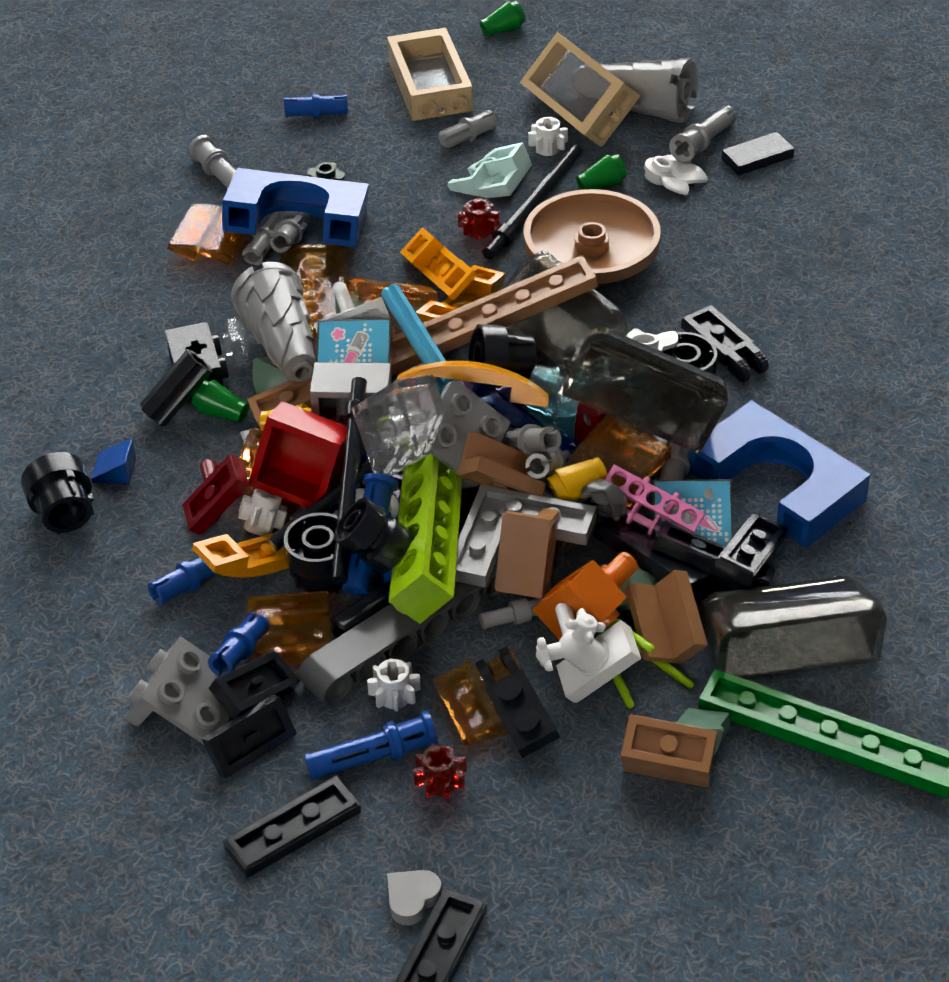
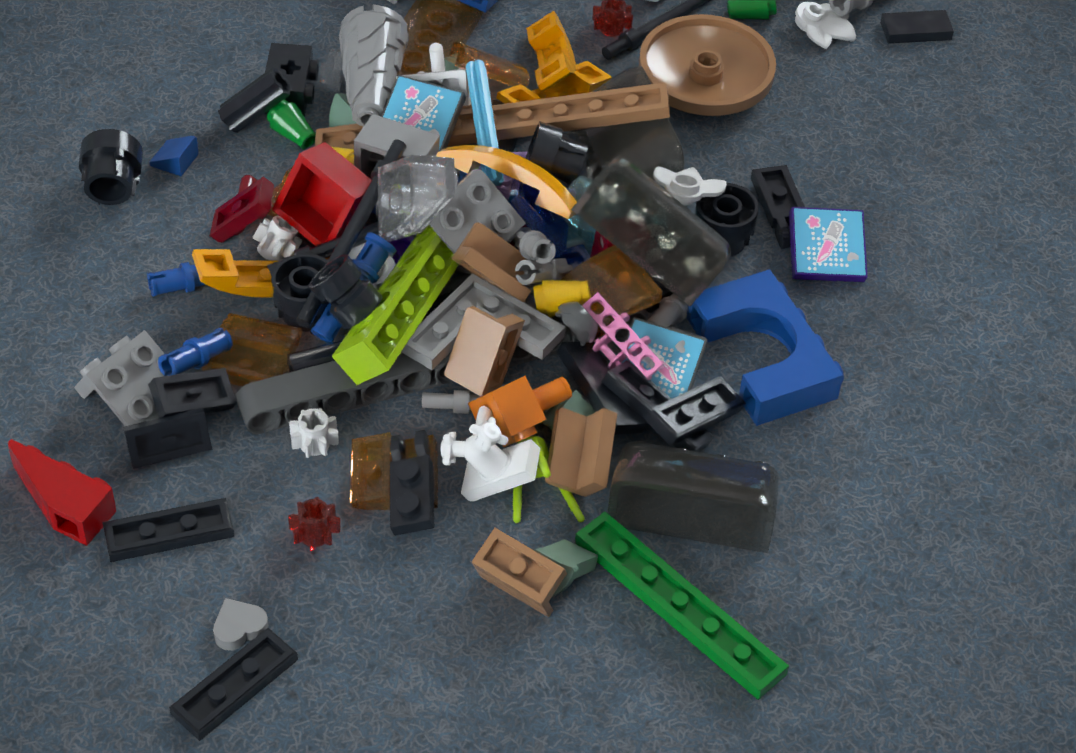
camera: 15 degrees right, 5 degrees up
(171, 826) = (66, 497): none -> red slope
(396, 740) = (287, 483): blue pin -> none
(787, 364) = (828, 244): none -> tile

